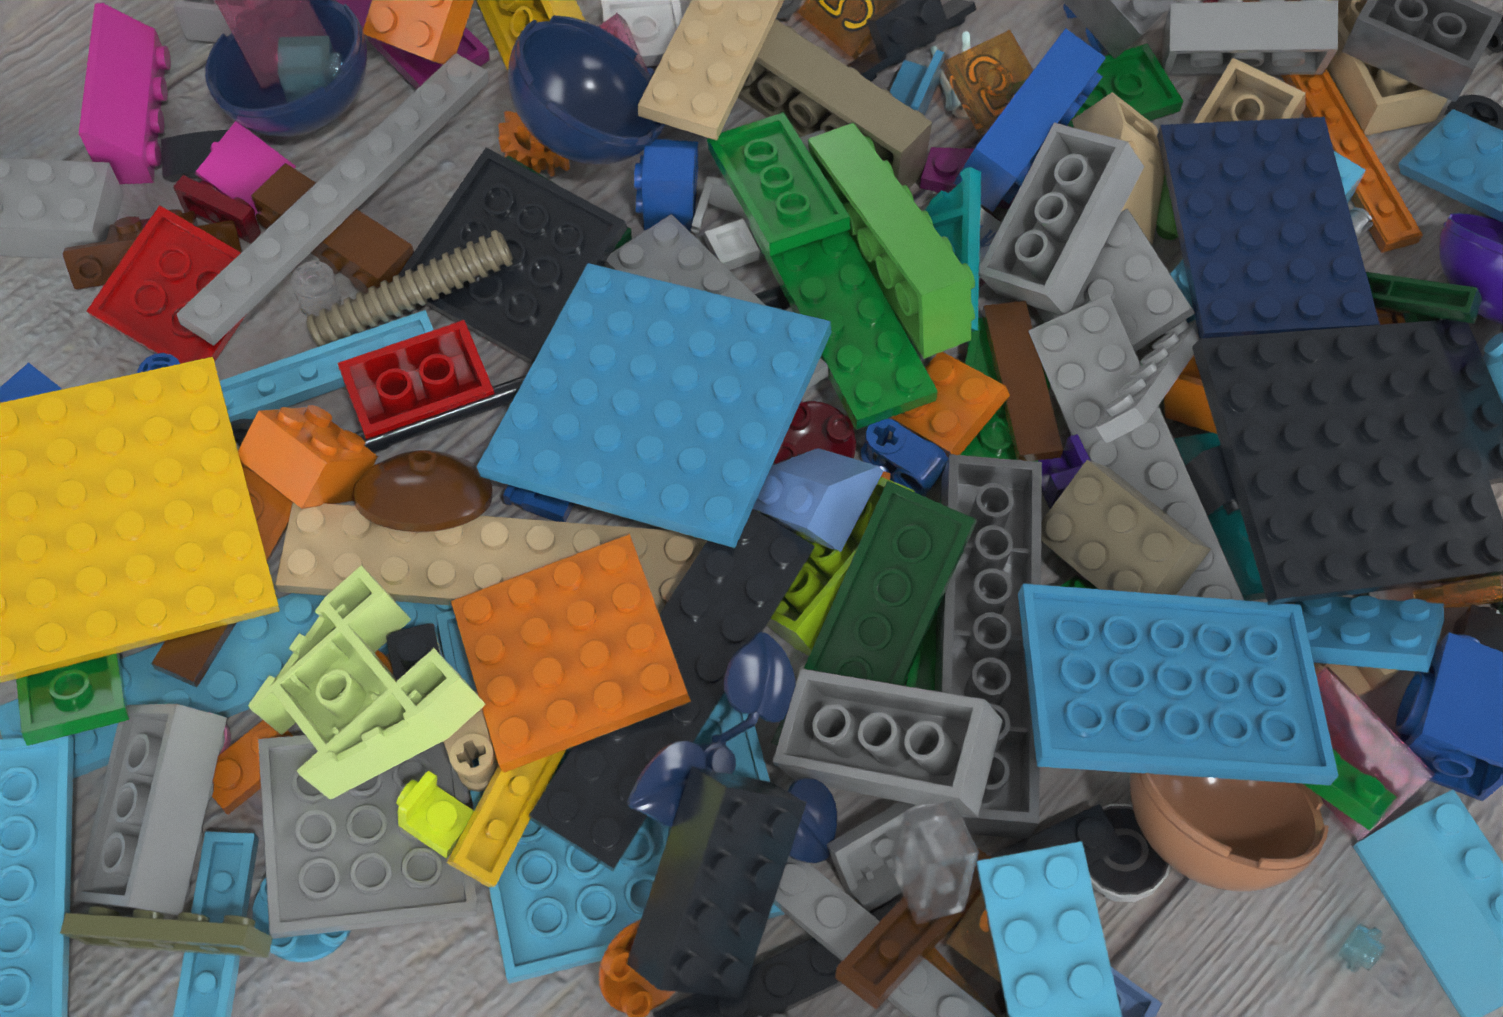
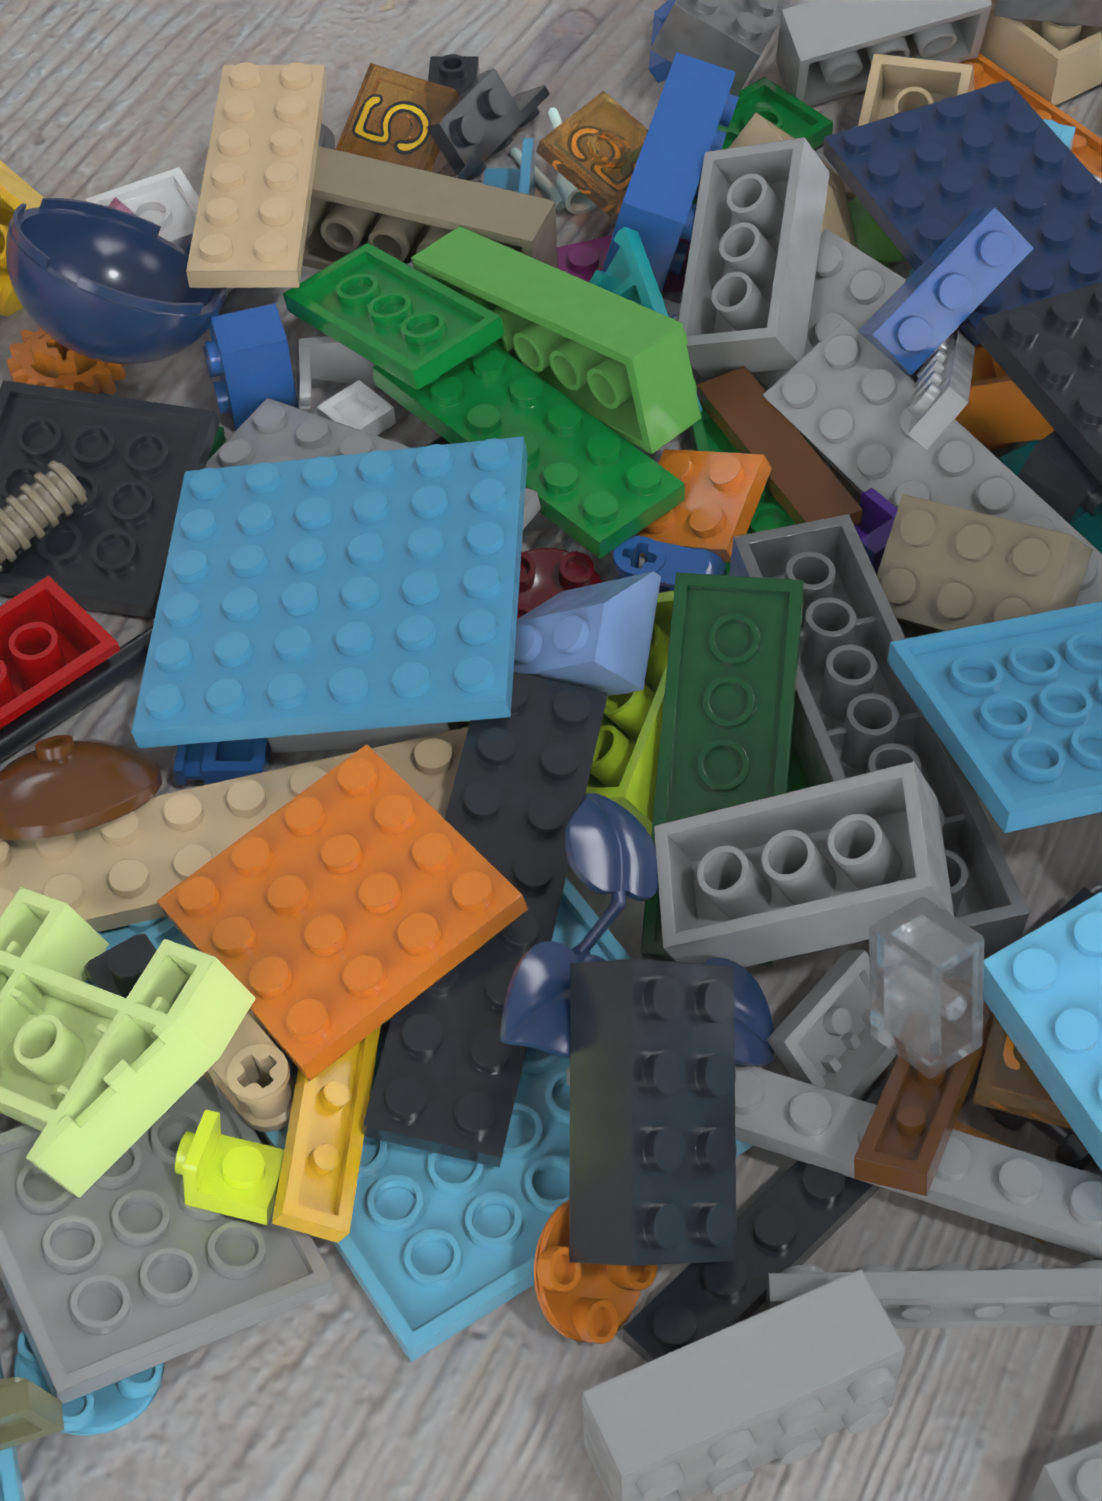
camera: 15 degrees left, 10 degrees down
(1187, 300) = (946, 288): none -> brick

